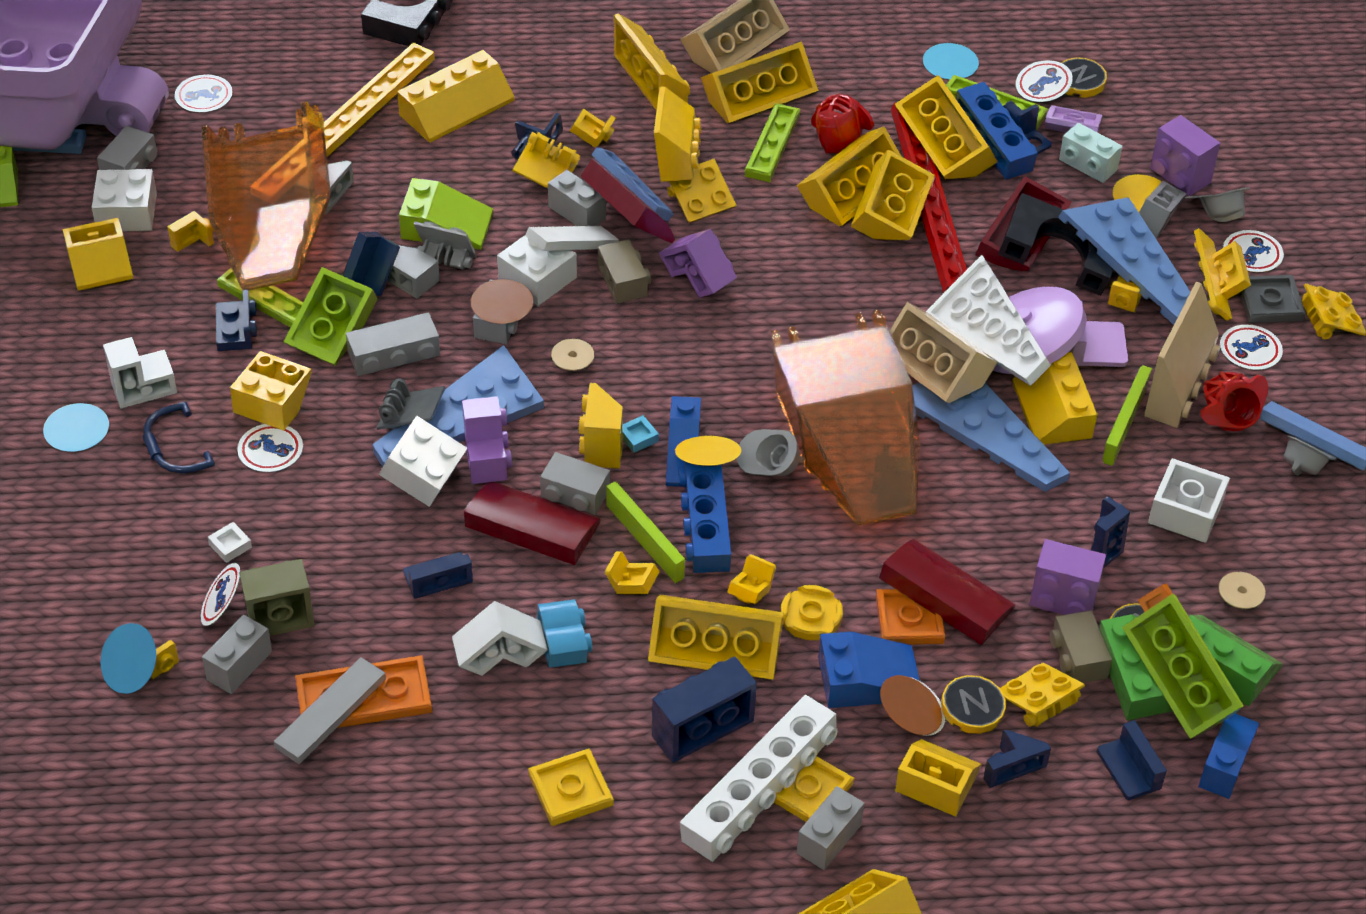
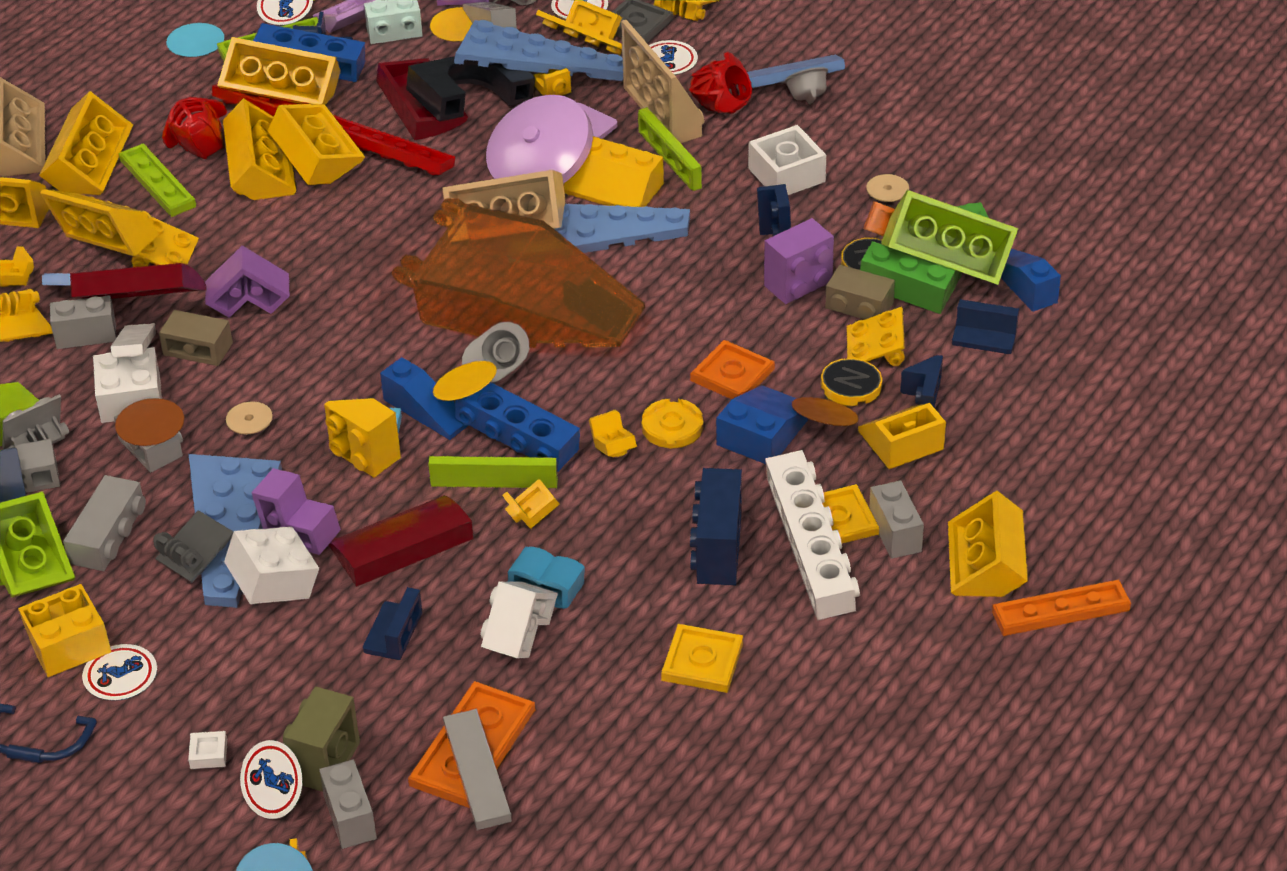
camera: 50 degrees left, 5 degrees down
(574, 483) = (395, 487): light grey brick -> none
(709, 632) = (642, 487): yellow slope -> none
(946, 590) = (734, 335): dark red slope -> none
(987, 318) = (500, 152): white wing -> none

